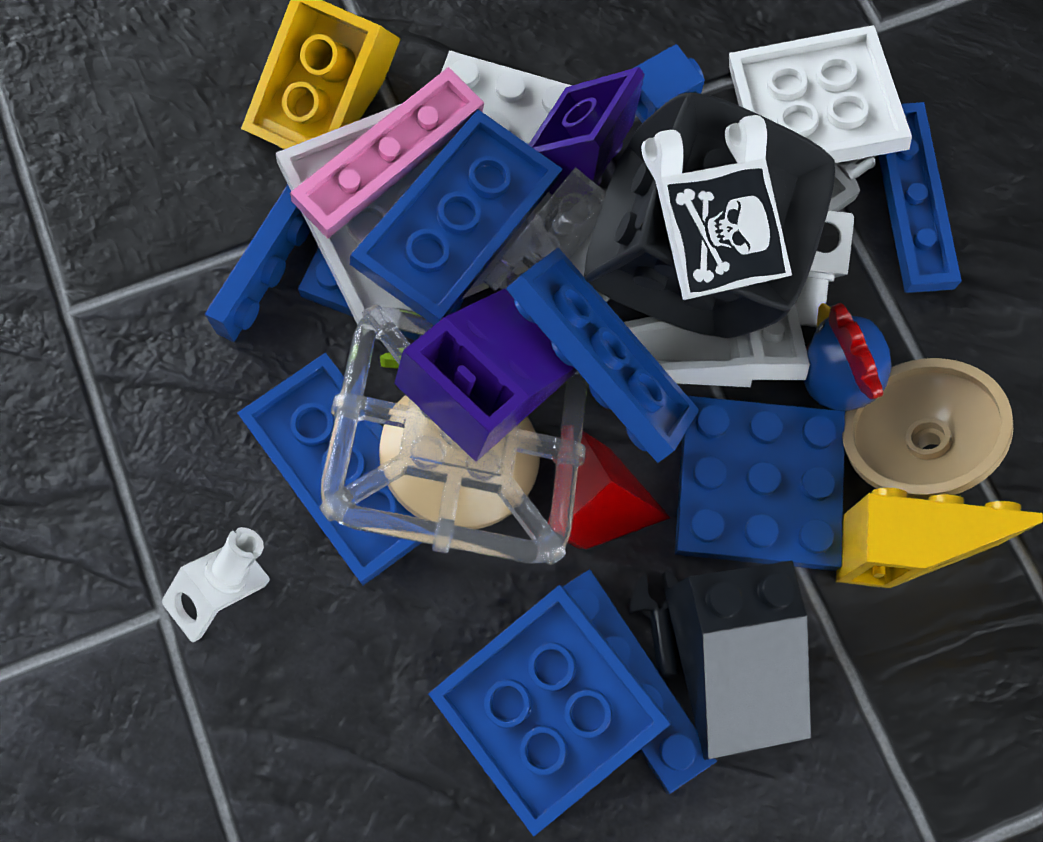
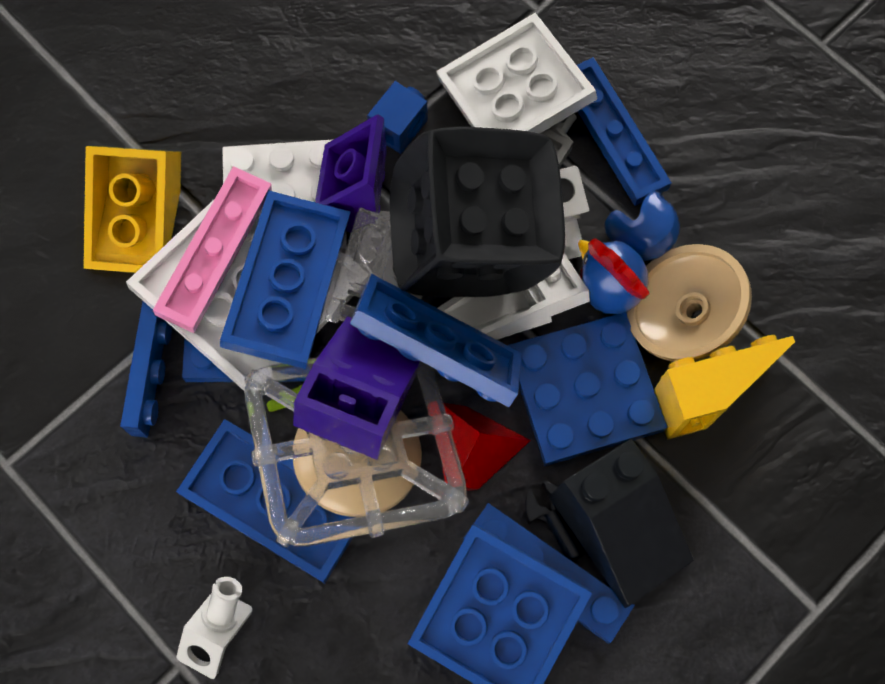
camera: 20 degrees left, 0 degrees up
(720, 217) = (487, 215): flag -> none
(914, 328) = (653, 230): none -> blue helmet

